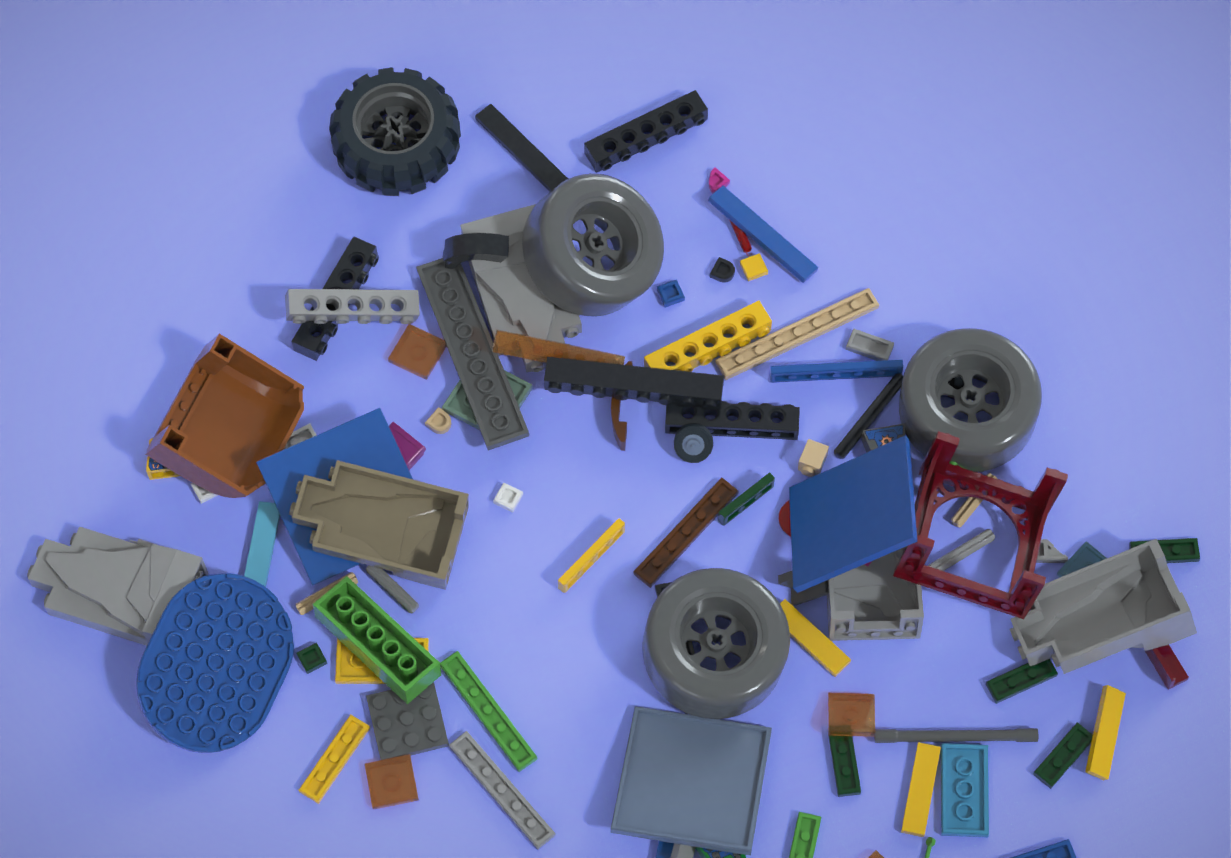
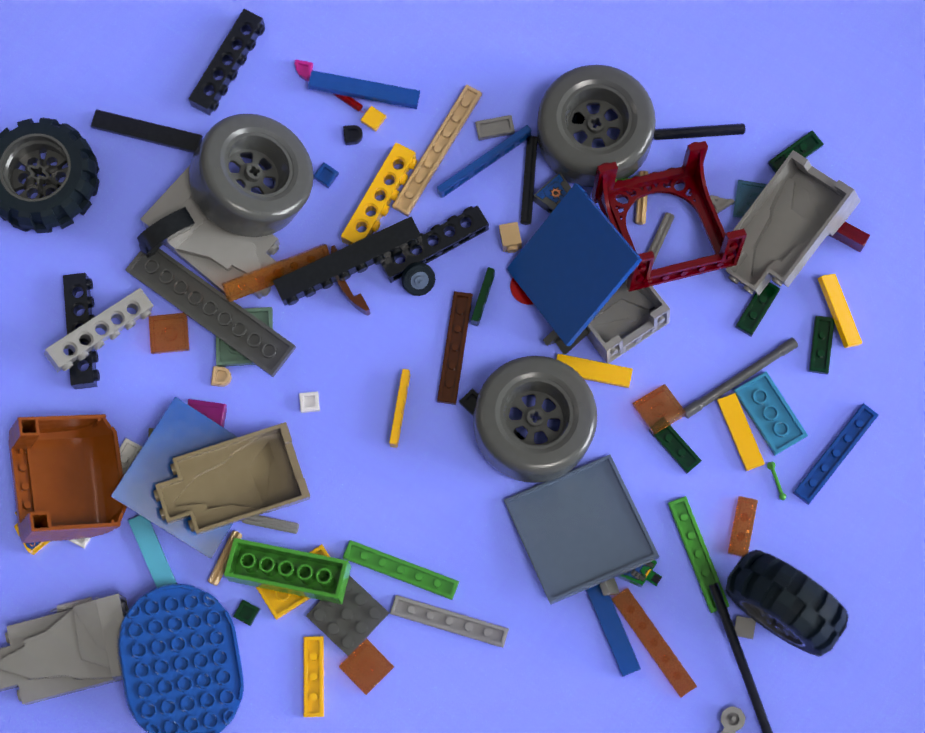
camera: 30 degrees left, 10 degrees up
(1077, 471) = (699, 131): none -> black axle

